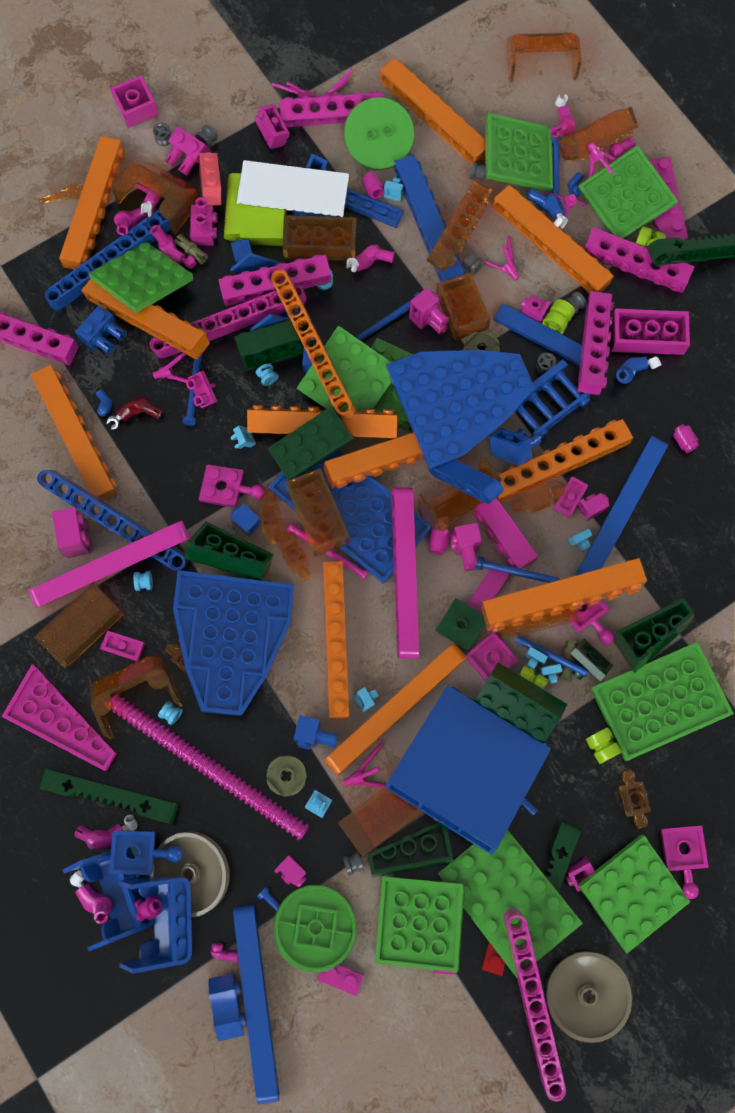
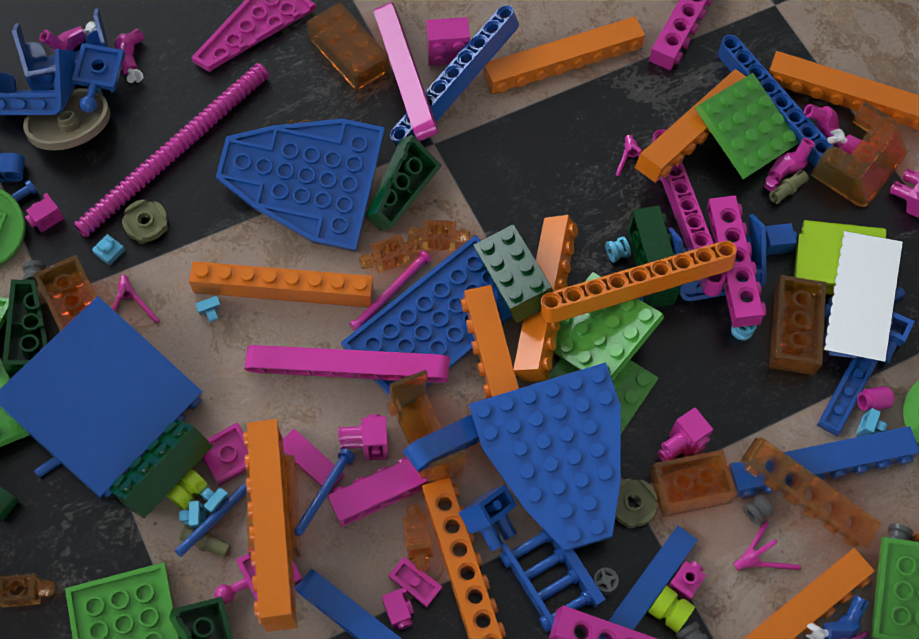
camera: 95 degrees right, 10 degrees down
(57, 783) = (149, 88): dark green gear -> none
(67, 193) = (864, 67): clear orange piece -> none
(97, 328) = (687, 83): blue brick -> none
(105, 404) = (597, 88): blue arm -> none
(122, 646) = (319, 83): dark pink plate -> none
(134, 407) = (589, 113): dark red arm -> none
(143, 580) = (386, 106): medium azure wheel -> none
(149, 908) = (47, 76): dark pink brick -> none
(150, 669) = (276, 105): clear orange windscreen -> none
(170, 712) = (238, 119): medium azure wheel -> none
(189, 418) = (609, 175): blue bar -> none
(202, 388) = (603, 181): dark pink hips -> none
(203, 223) = (820, 199): dark pink brick -> none
(210, 178) = (879, 208): coral brick -> none
(230, 495) = (491, 203): dark pink plate -> none
(244, 438) = (537, 216): medium azure tile -> none
(245, 519) = (440, 207): blue brick -> none
(309, 734) = (182, 243): blue brick -> none
(317, 512) = (431, 274): clear orange brick -> none
(368, 257) = (768, 379): dark pink arm -> none
(372, 329) = (679, 388): blue bar -> none
(395, 709) = (193, 340): orange beam -> none
(438, 541) = (380, 407): dark pink brick -> none
(461, 624) = (288, 418): dark green tile -> none
(581, 539) = (356, 584): medium azure tile -> none
(592, 660) = (195, 565): dark green tile -> none
(603, 745) = (89, 563): lime wheel -> none

